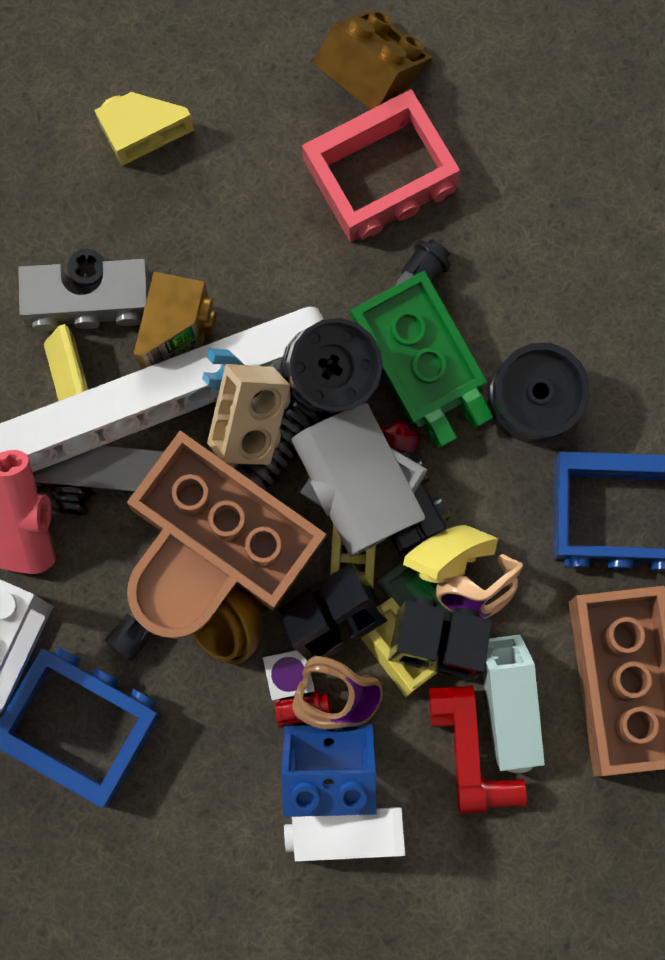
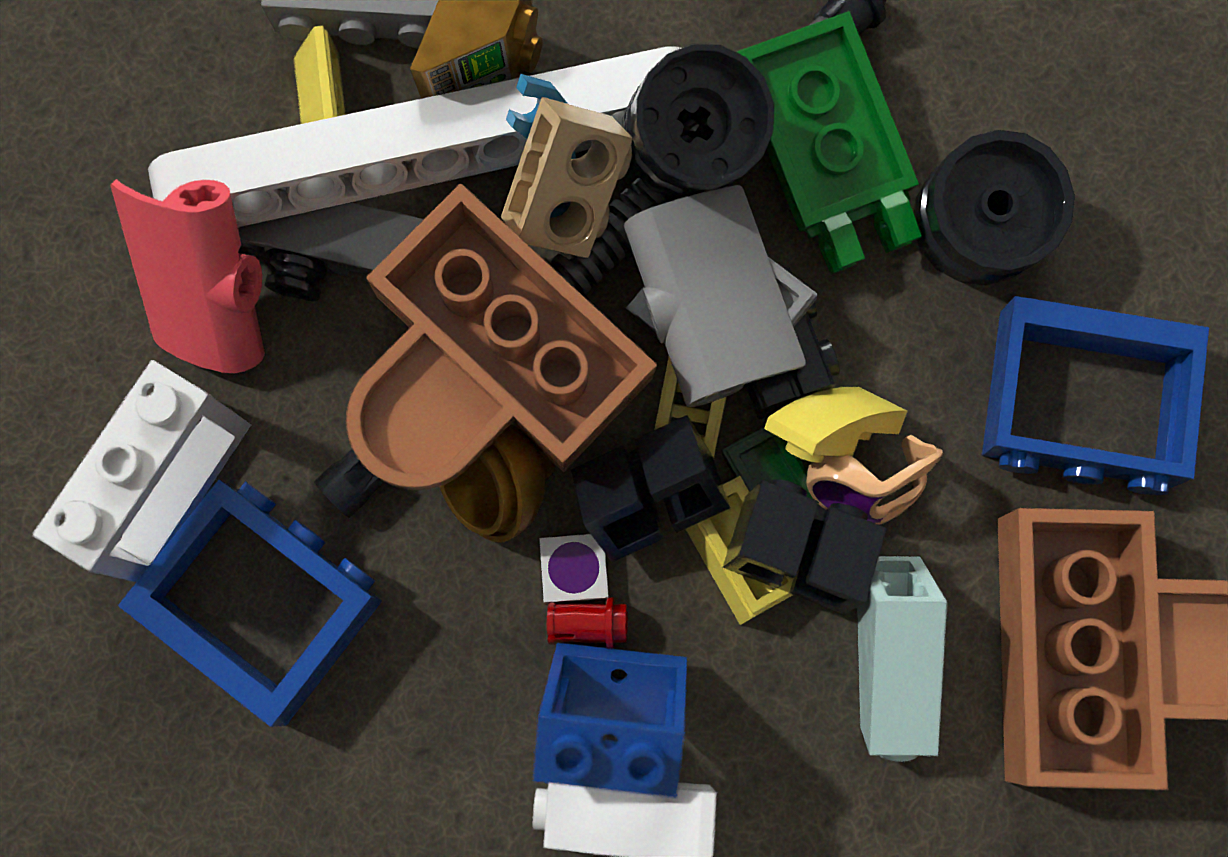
camera: 10 degrees right, 0 degrees up
(362, 703) = (677, 622): medium nougat piece -> none
(401, 437) = (786, 248): dark red tile -> none
(457, 709) = (817, 654): red beam -> none

